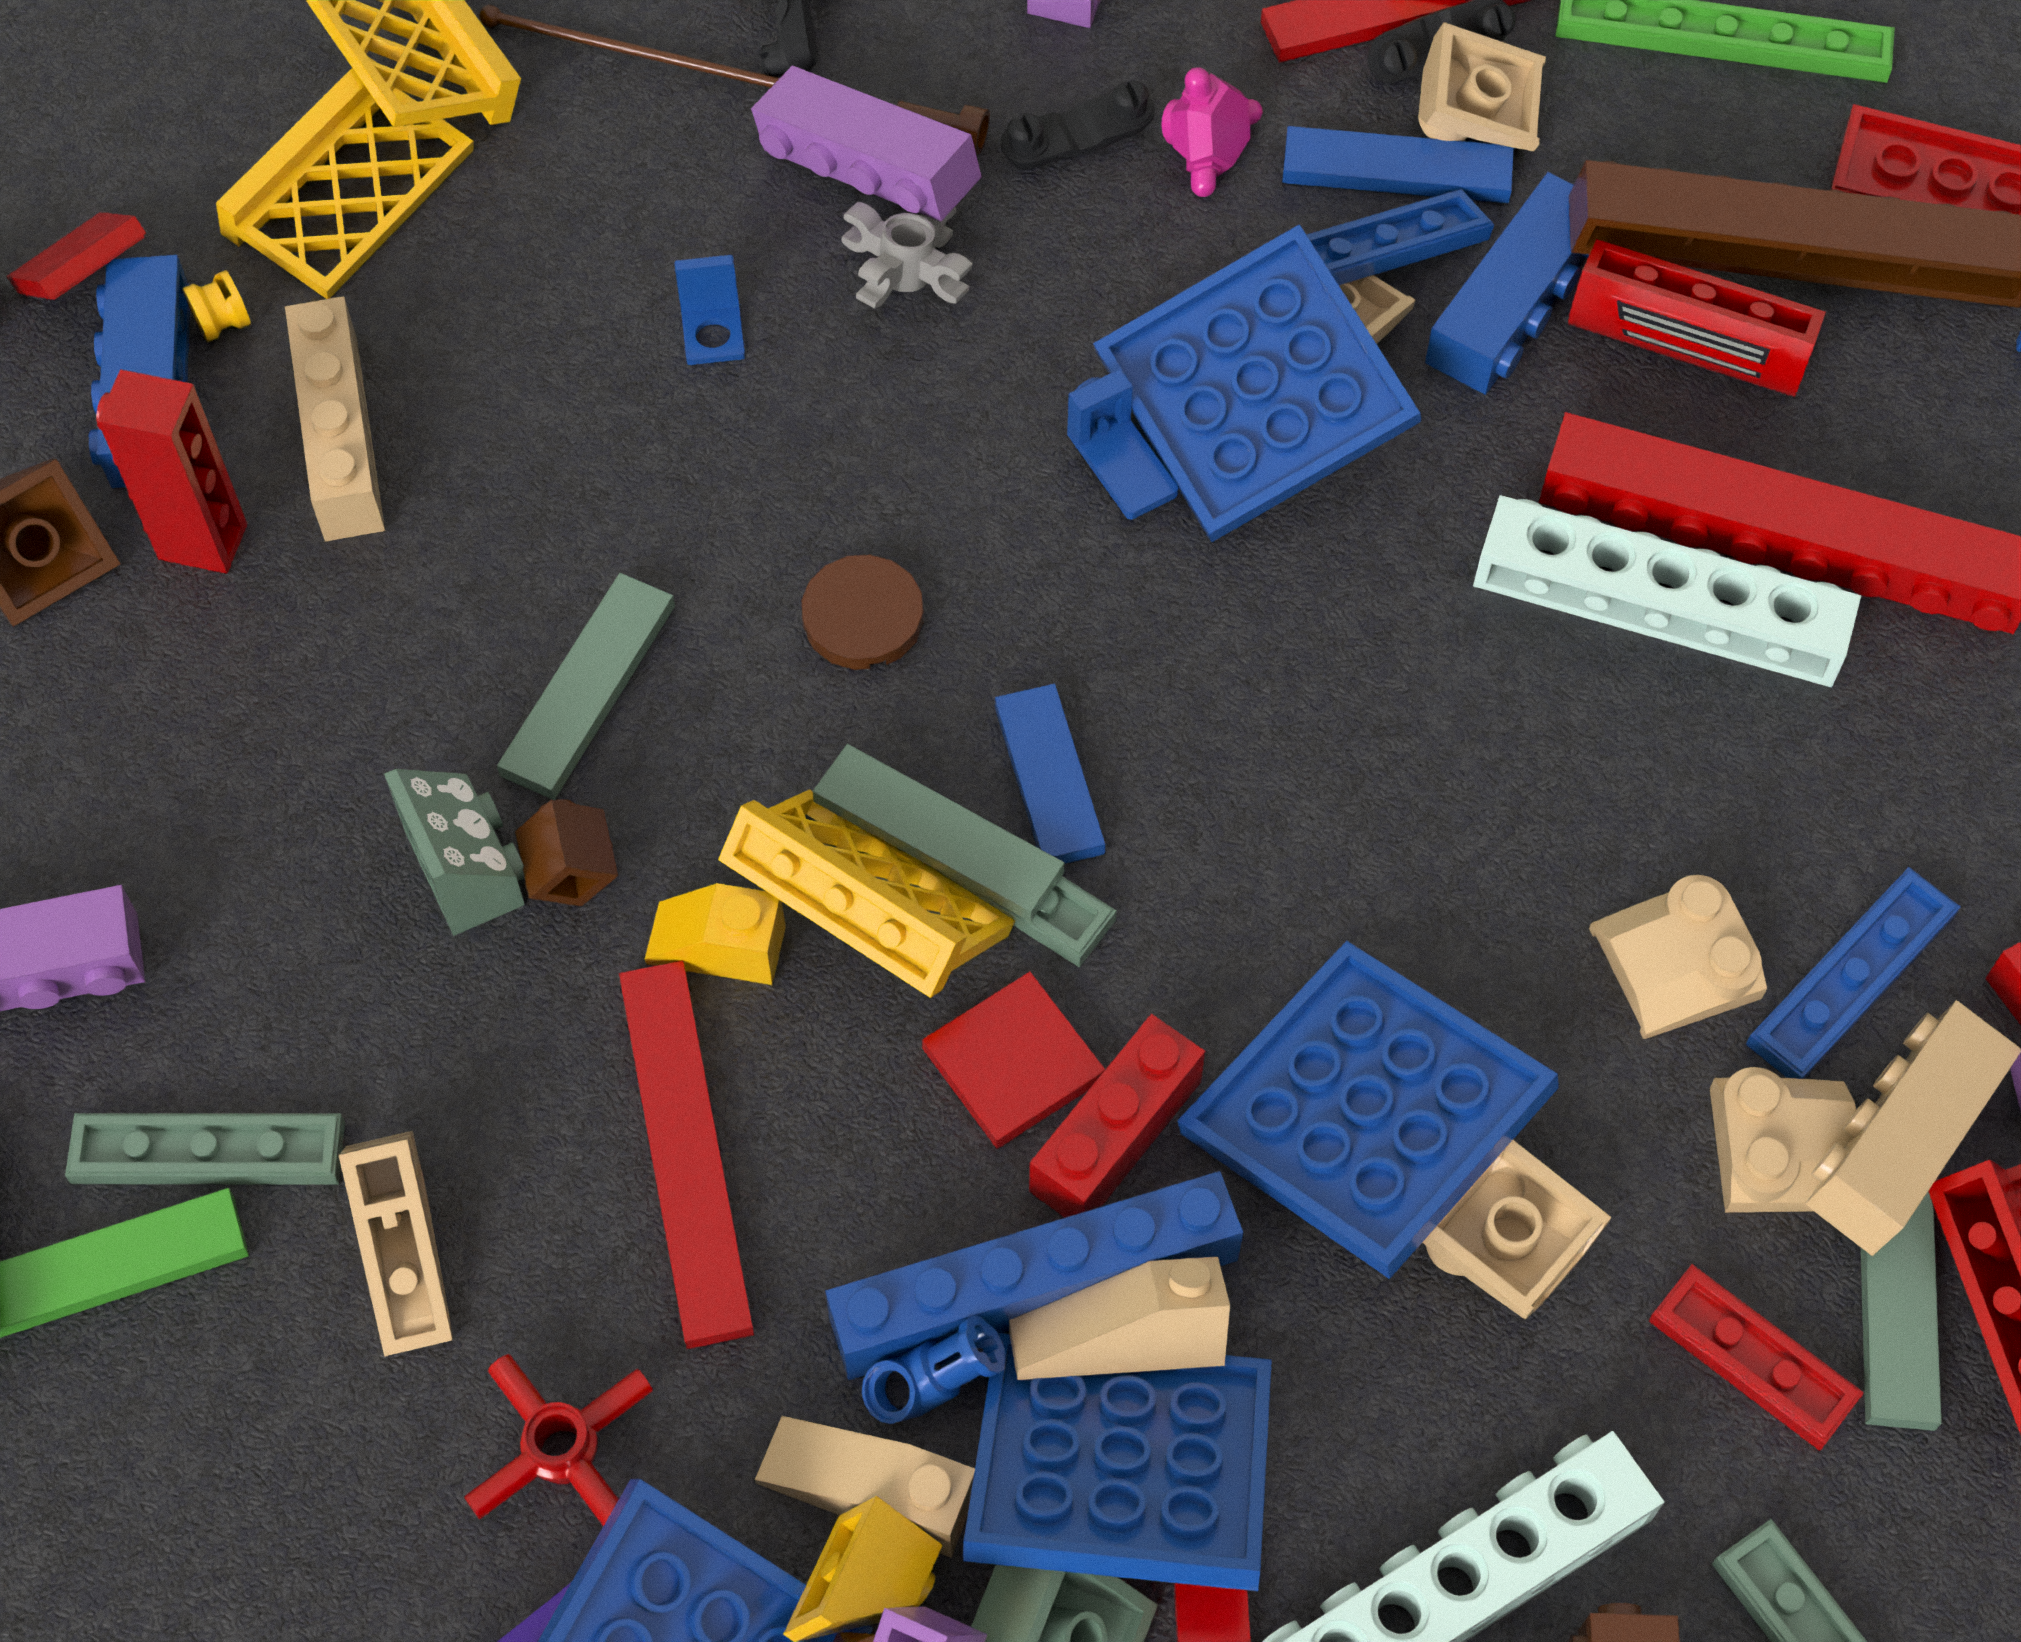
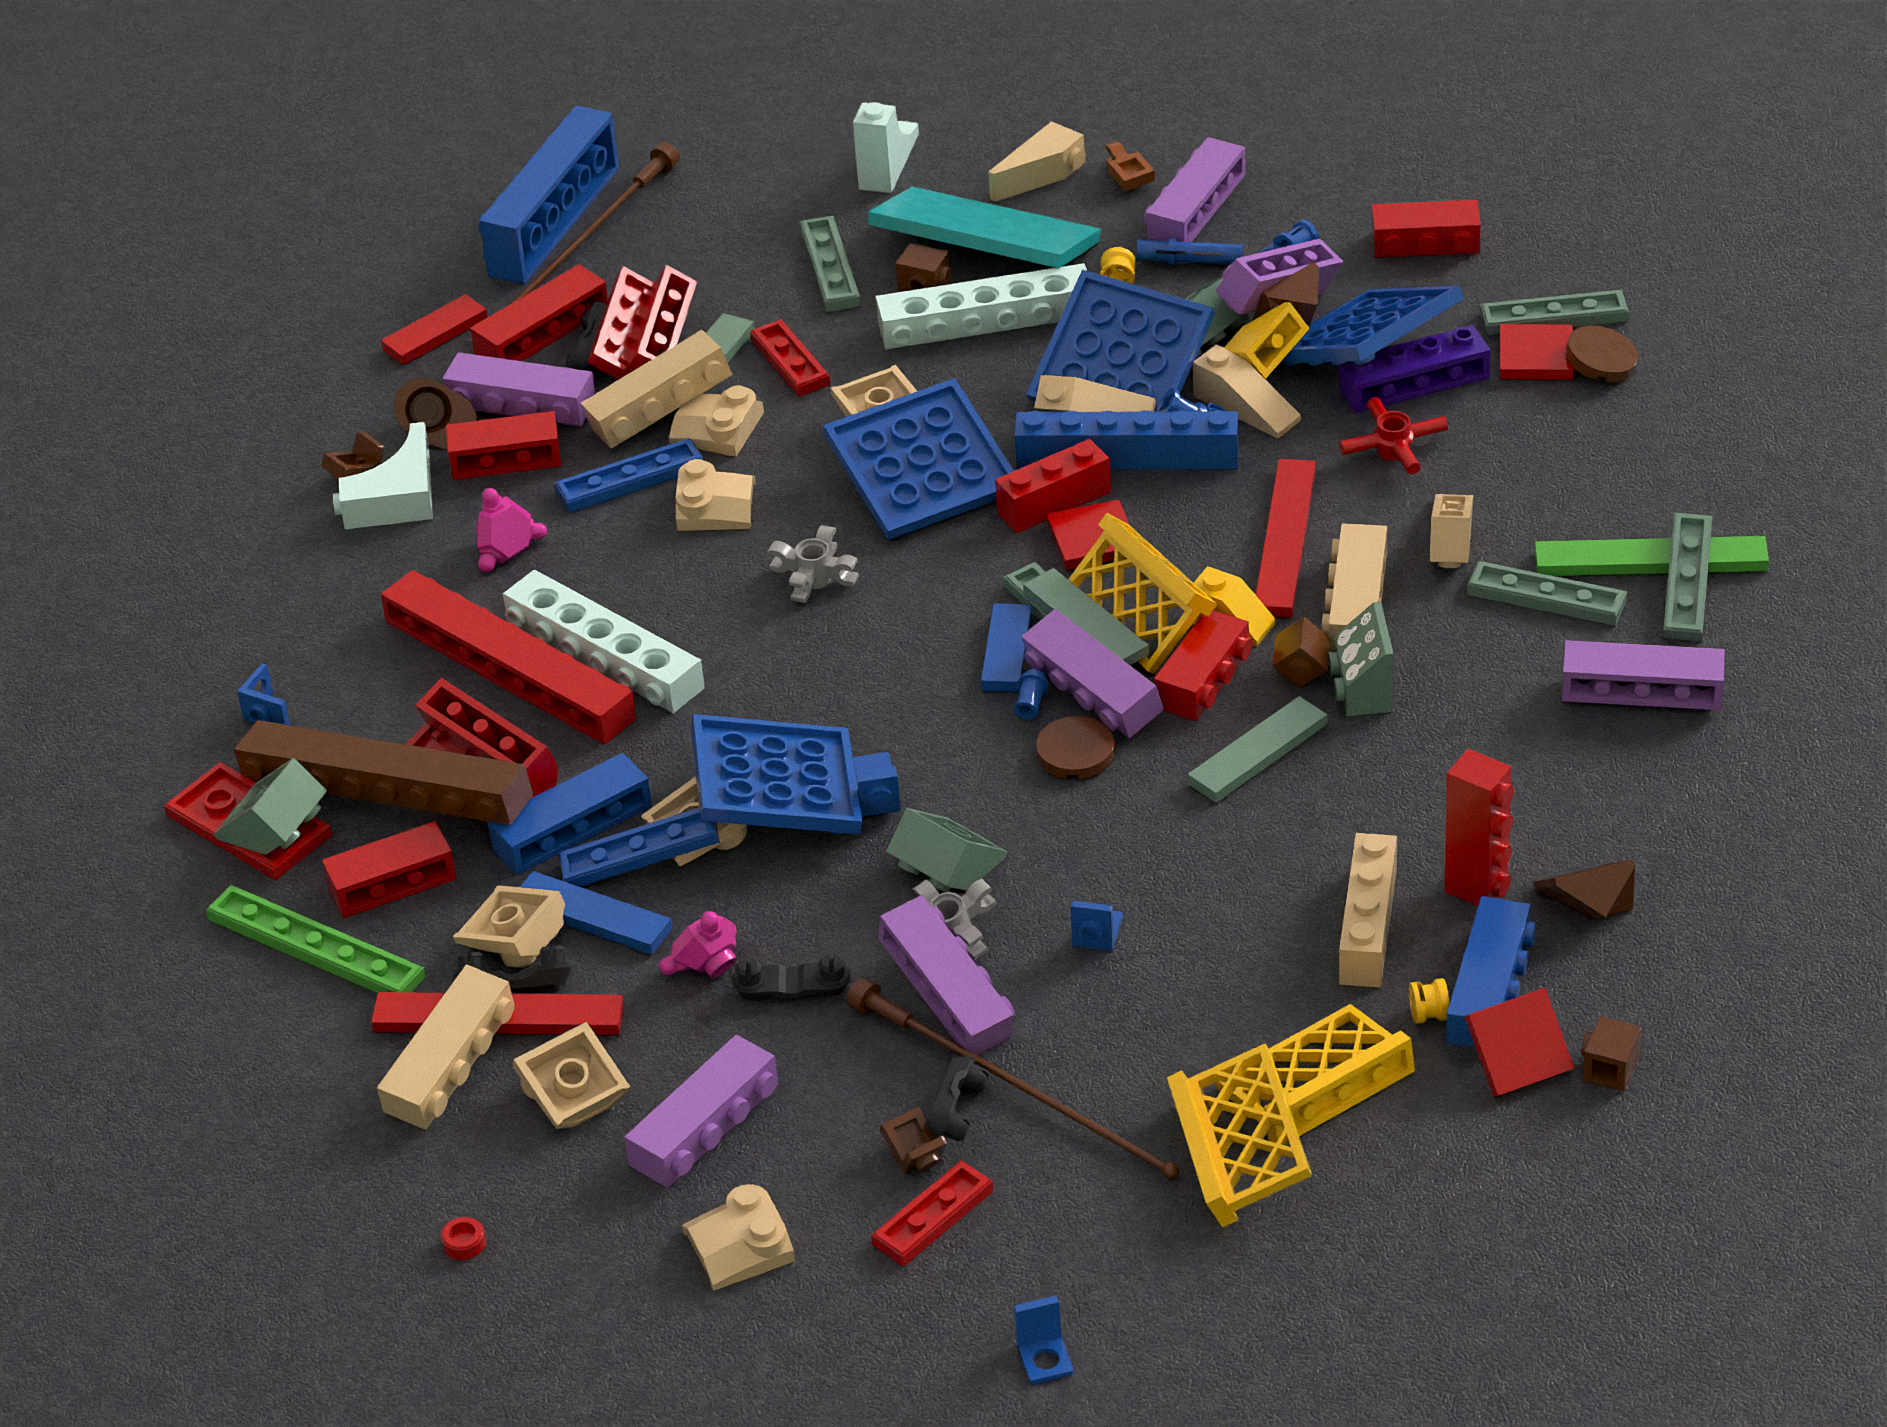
camera: 155 degrees left, 20 degrees down
(520, 1039) = (1356, 575): none -> tan brick
(726, 766) = (1203, 664): none -> red brick
(880, 710) = (1091, 674): none -> medium lavender brick
(962, 367) = (943, 850): none -> sand green slope
(970, 694) = (1032, 687): none -> blue pin
(1431, 813) = (813, 563): none -> light grey pin
(1710, 121) = (389, 869): none -> red brick
(1911, 140) = (273, 810): none -> sand green slope
(1960, 754) = (503, 530): none -> dark pink rock

